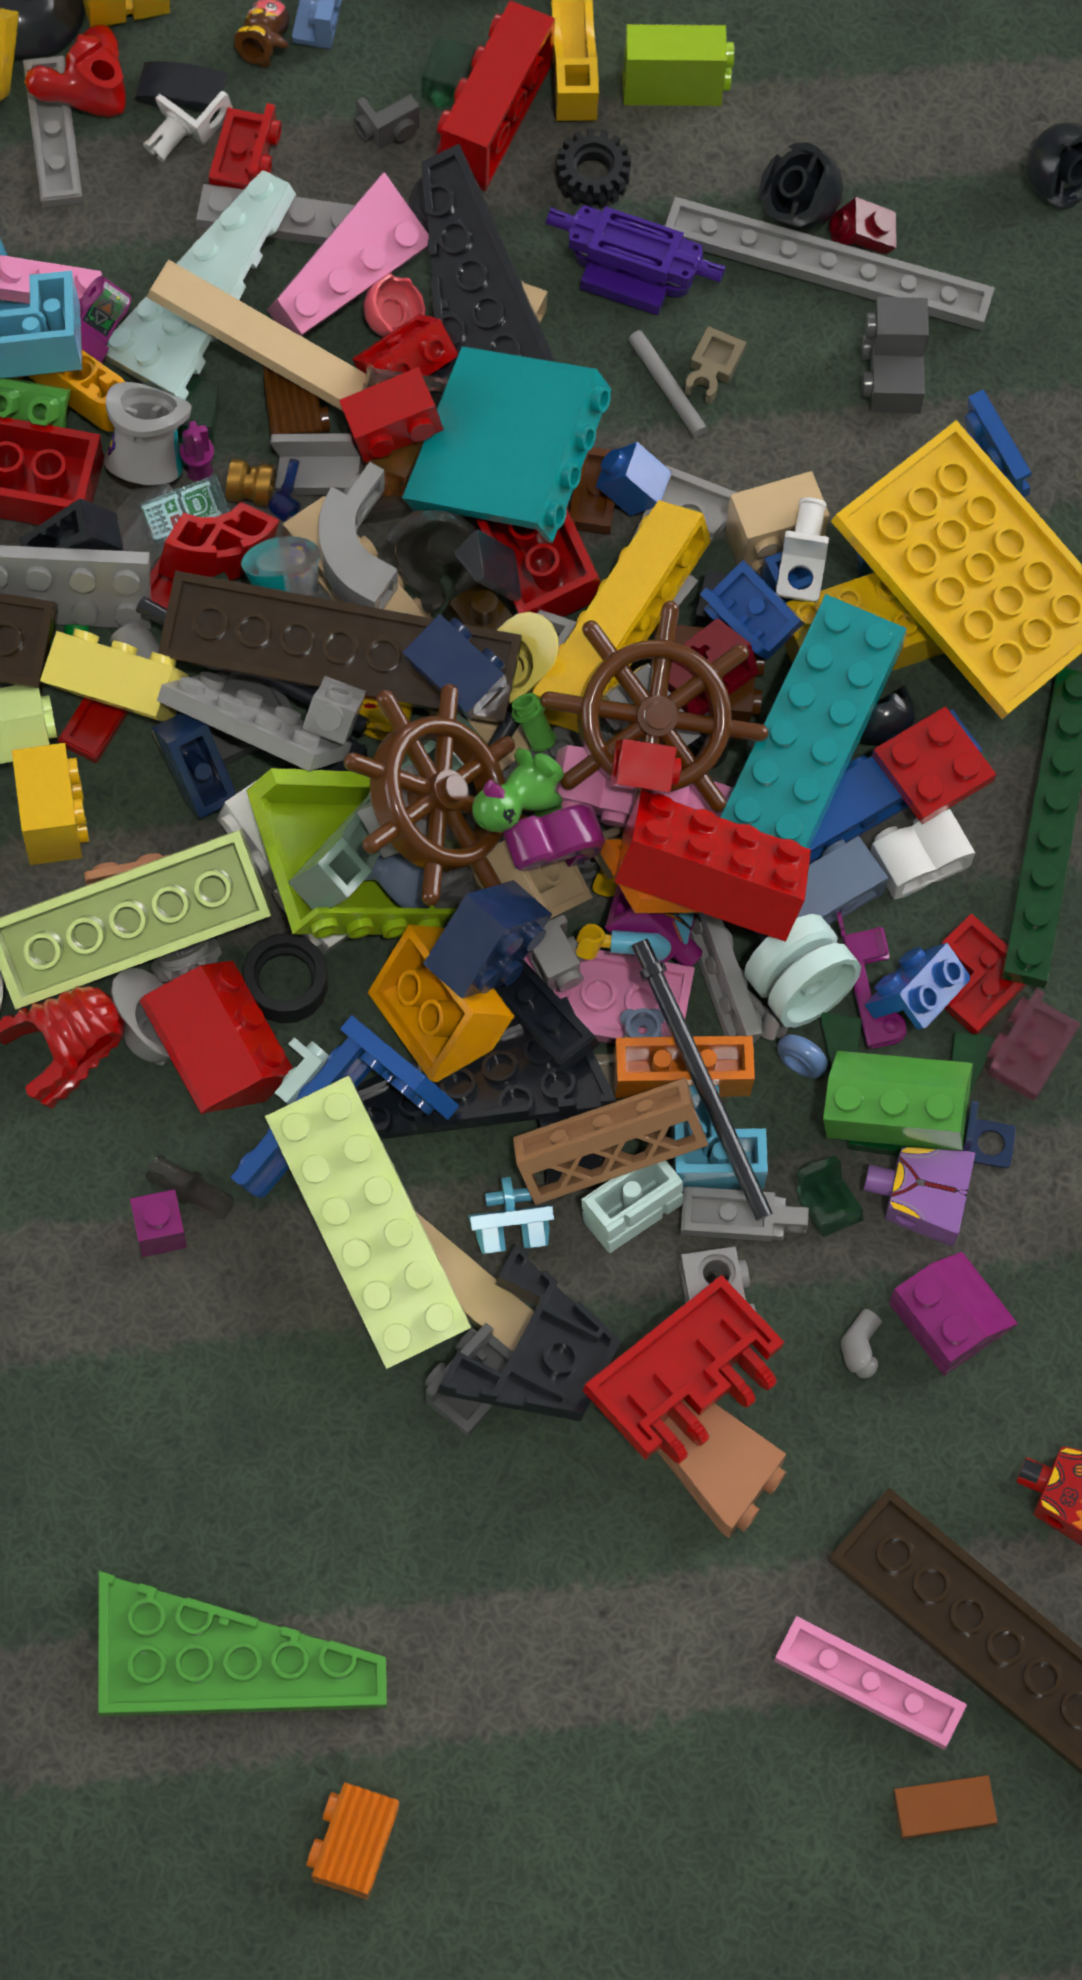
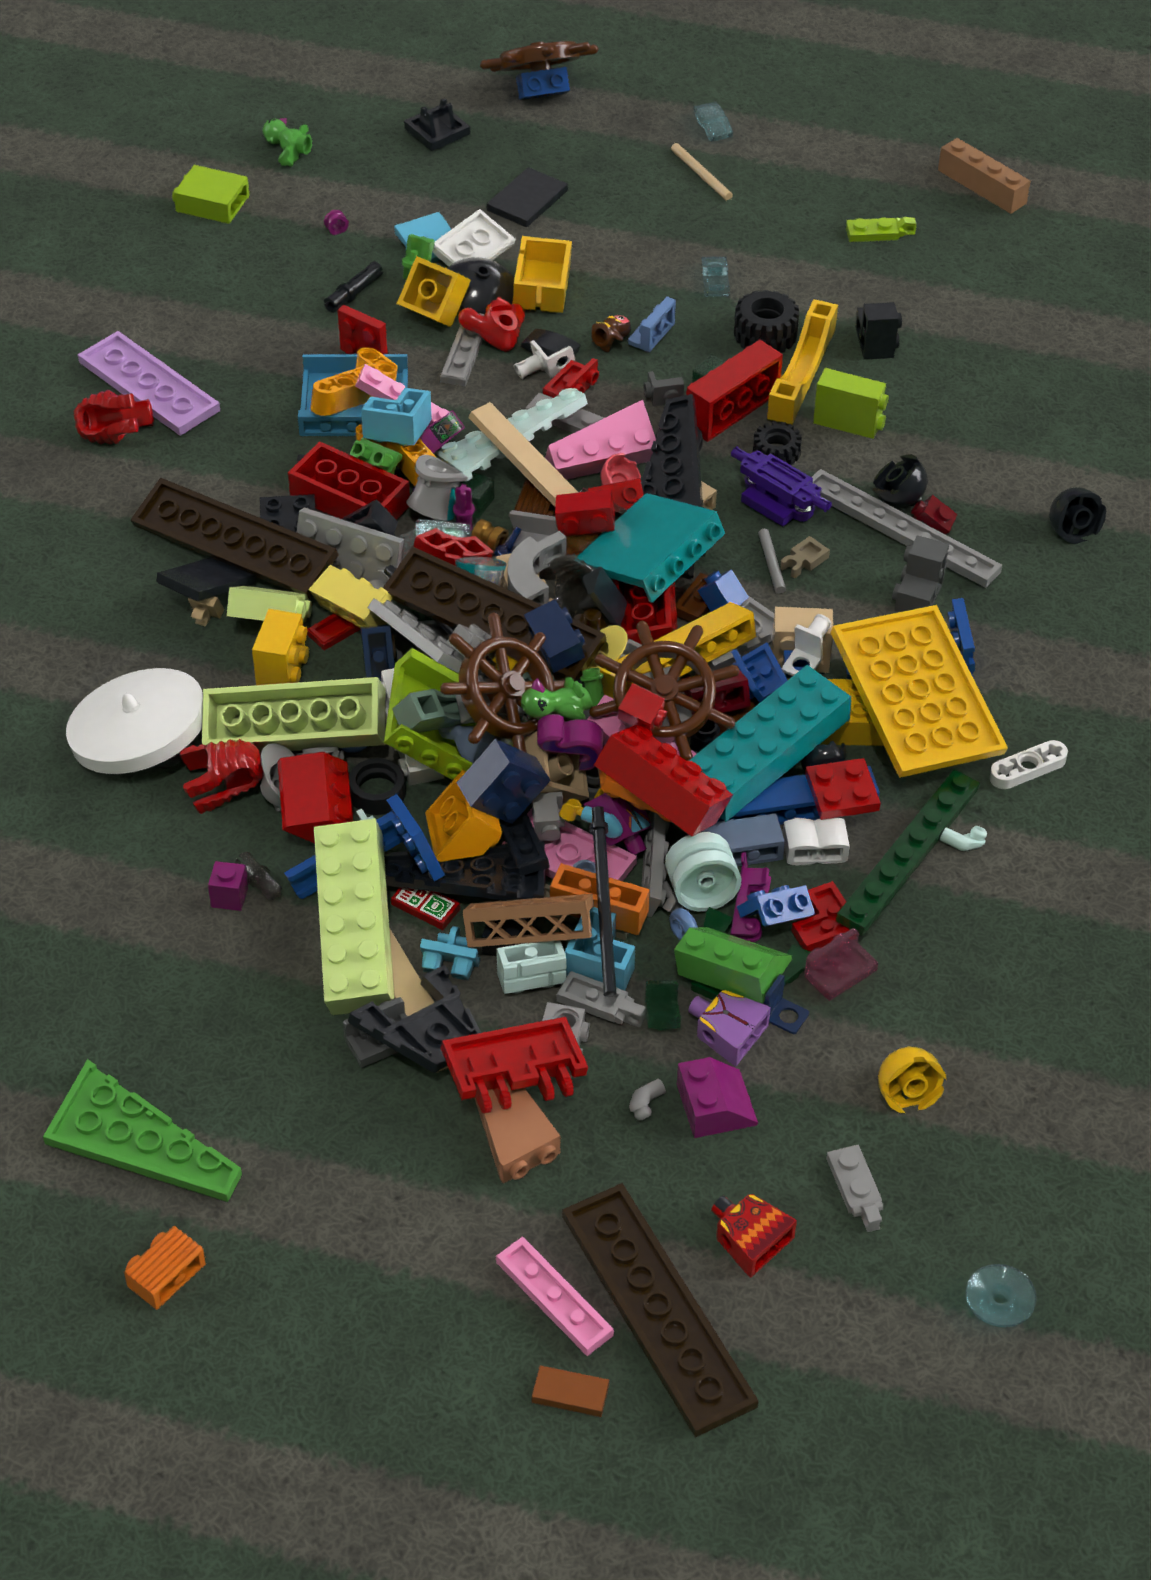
camera: 25 degrees right, 20 degrees down
(446, 1151) = (427, 906): none -> tile

